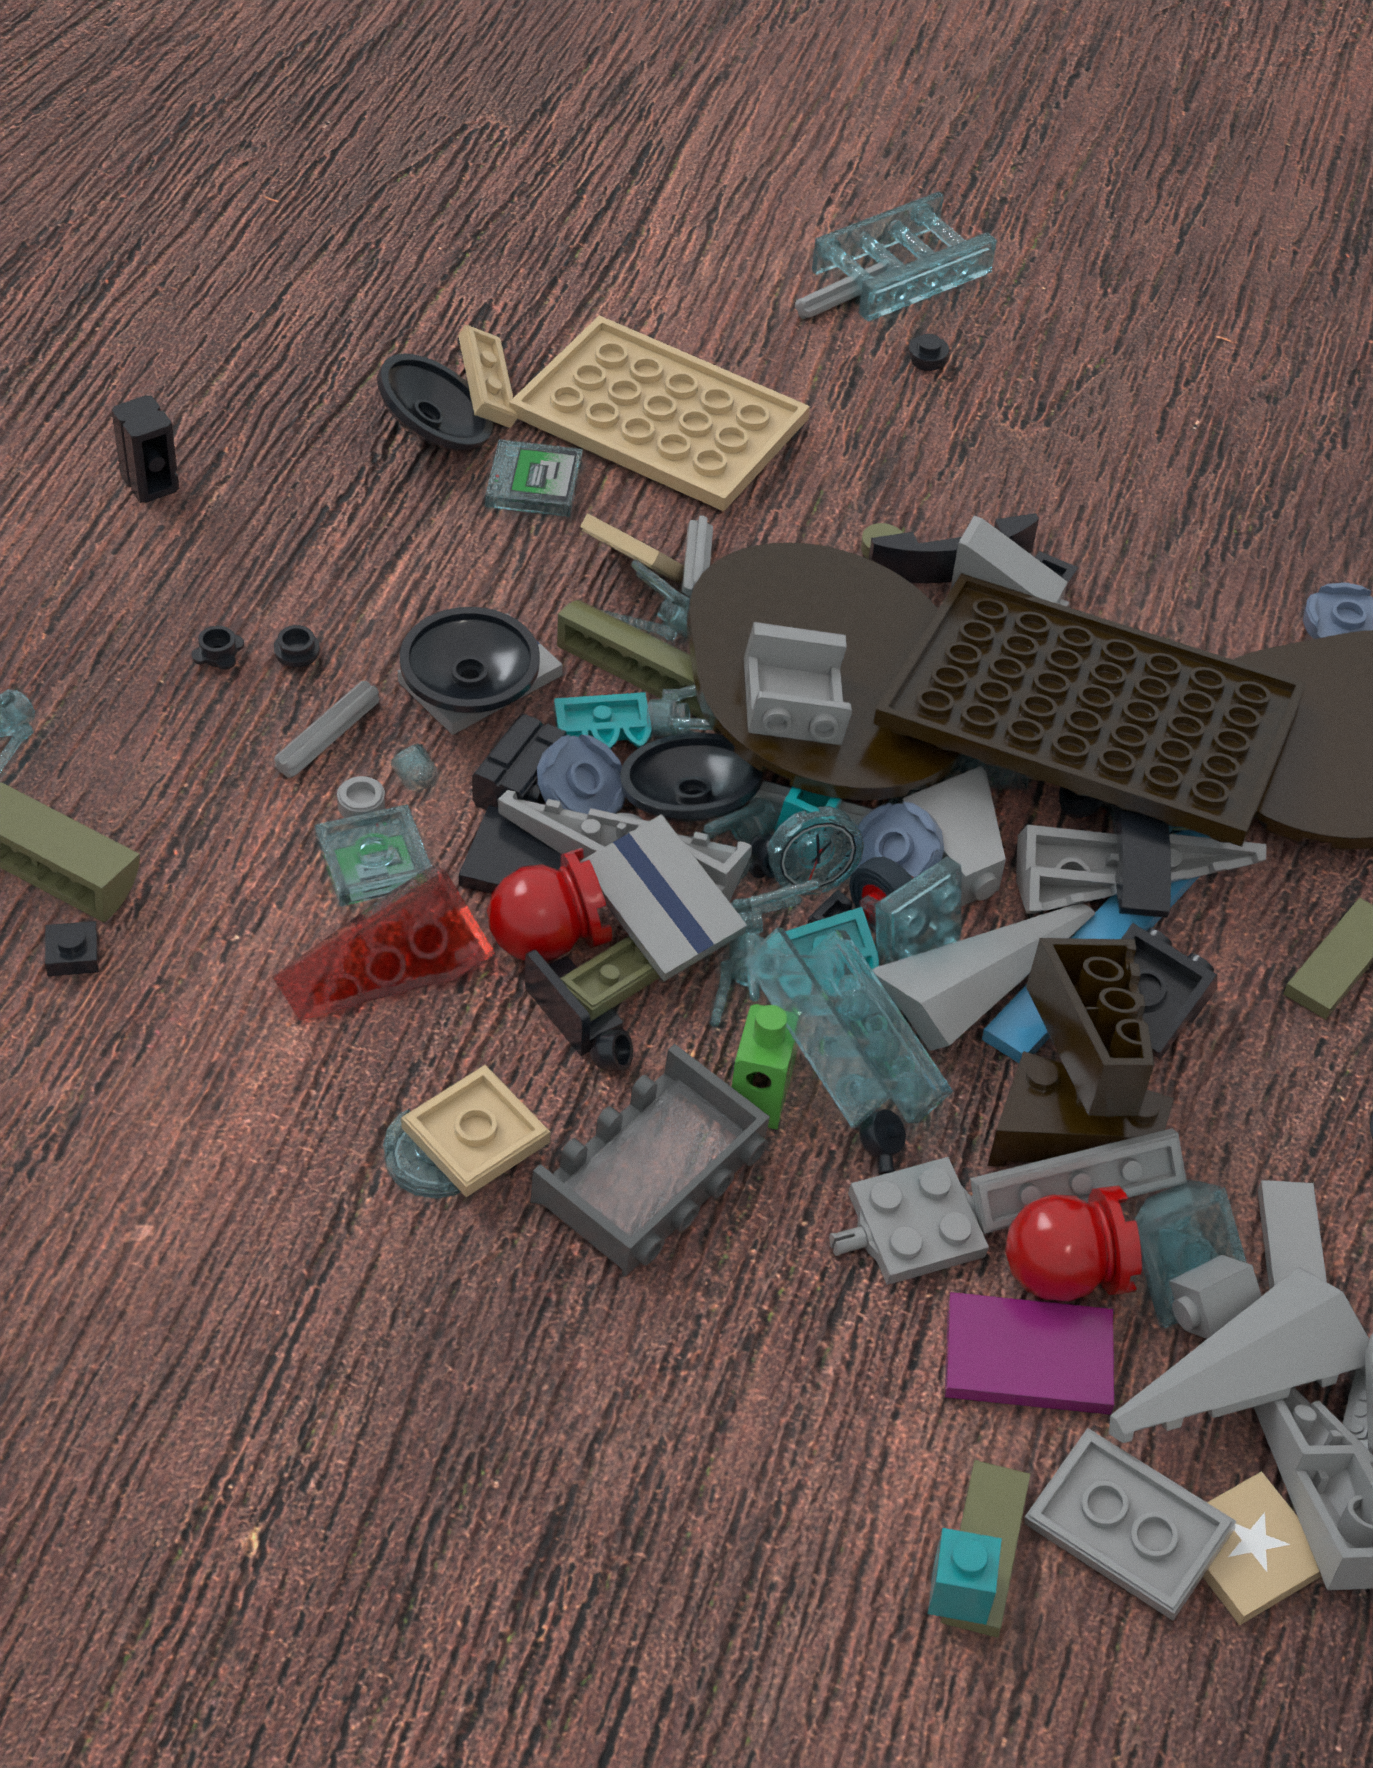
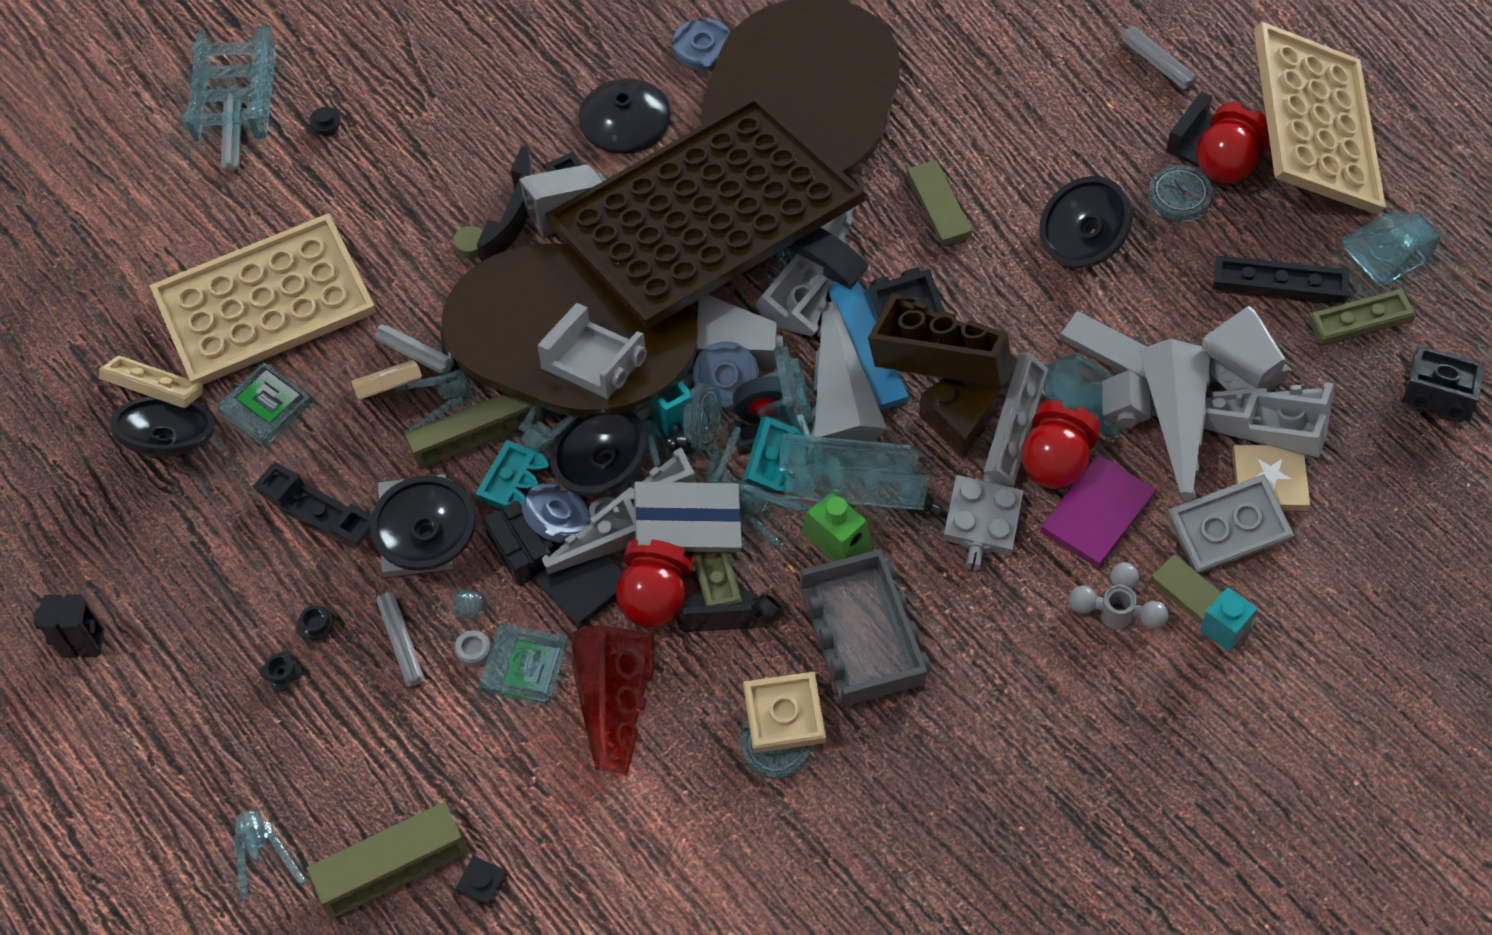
camera: 50 degrees left, 10 degrees up
(437, 565) = (312, 507): none -> black slope
(944, 1425) = (1124, 578): none -> light grey piece
(1179, 596) = (624, 116): none -> black dish

